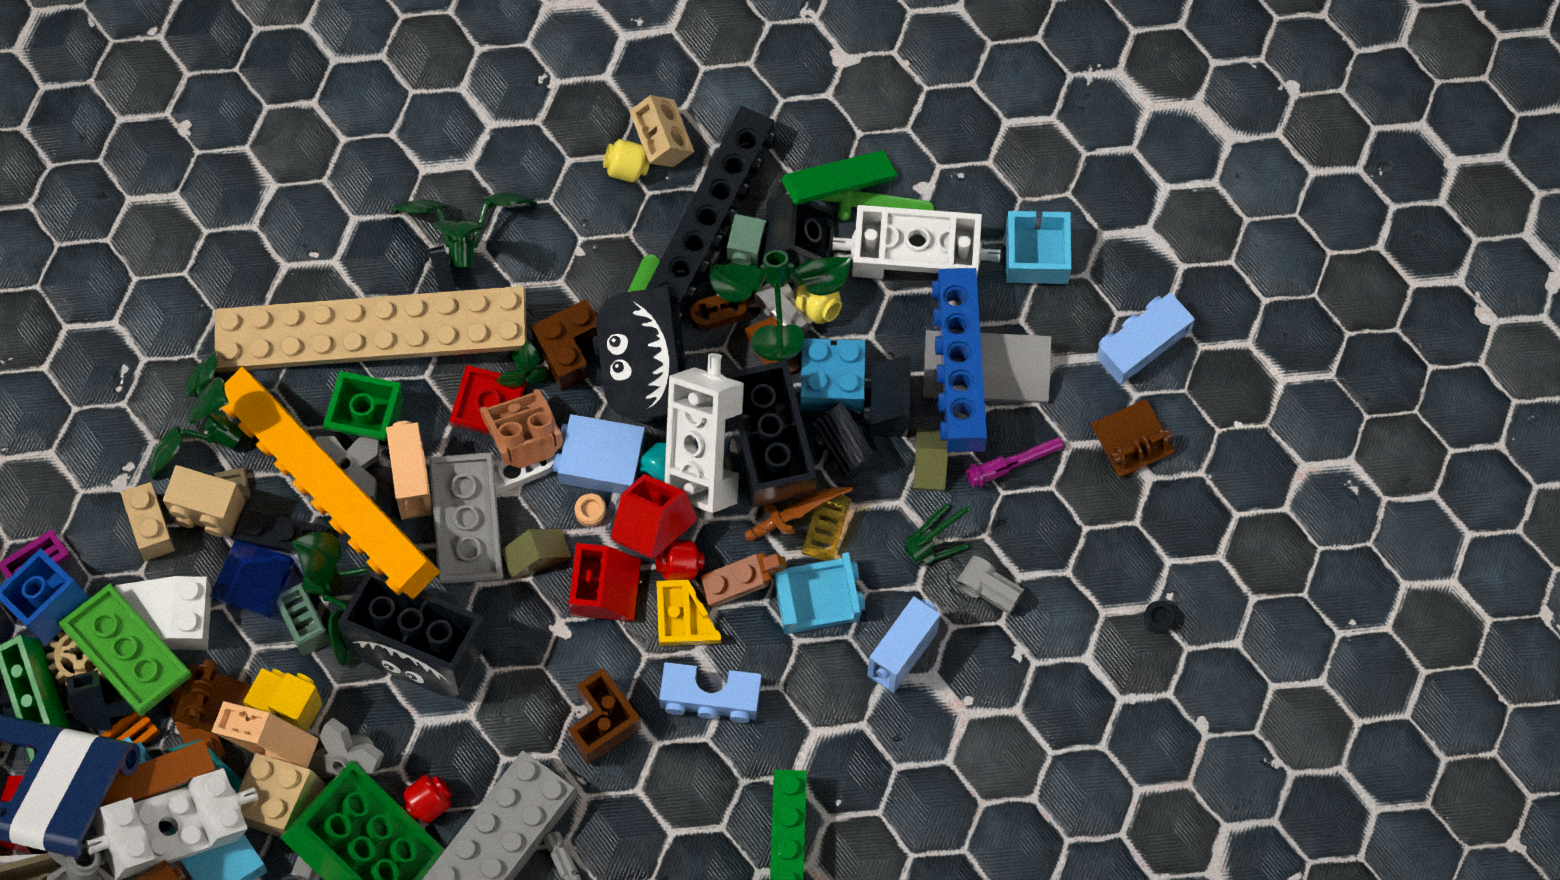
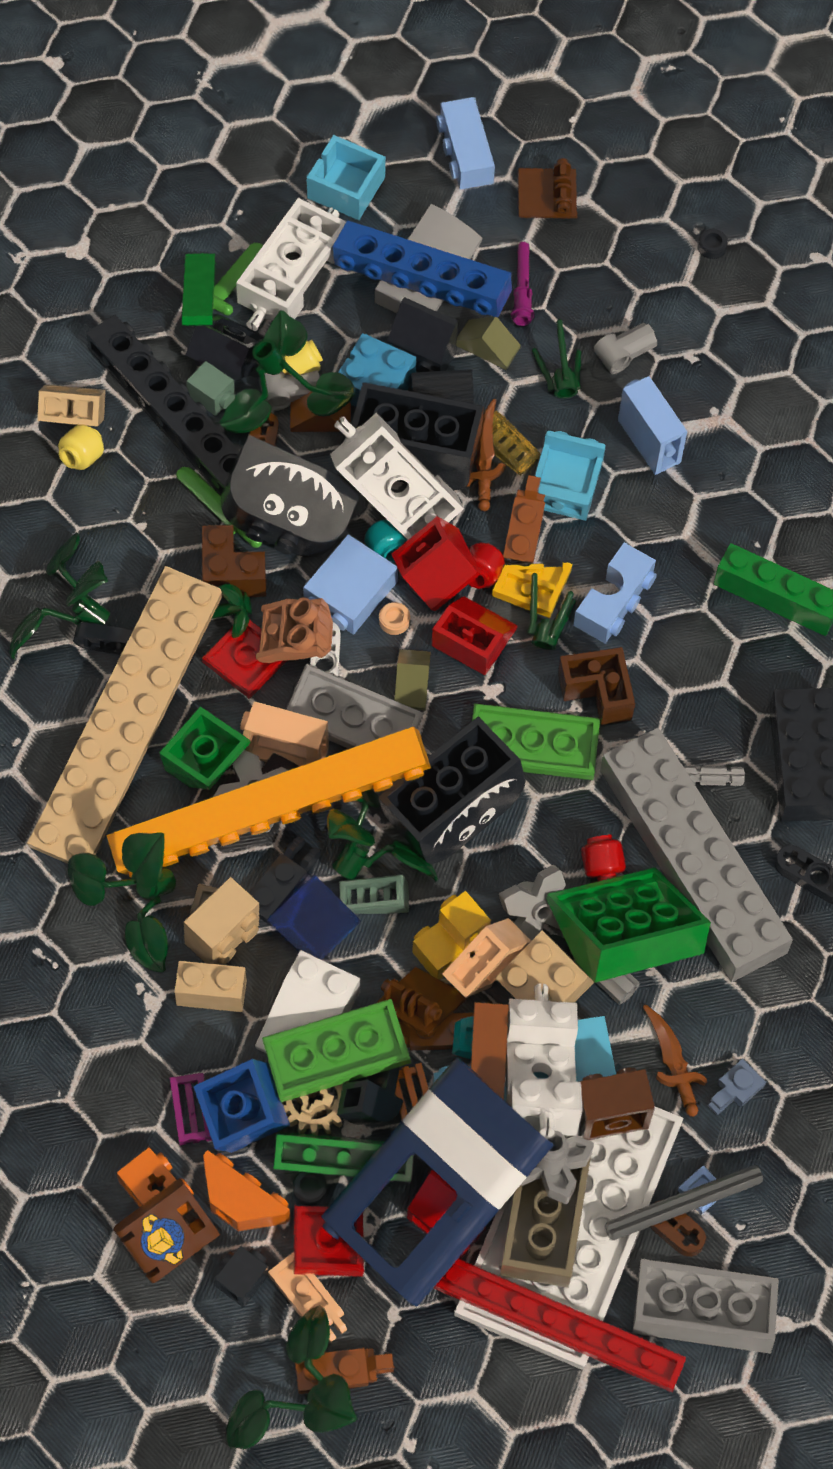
camera: 65 degrees left, 5 degrees down
(524, 689) = (546, 740): none -> bright green tile
(637, 649) = (548, 631): none -> dark green plant

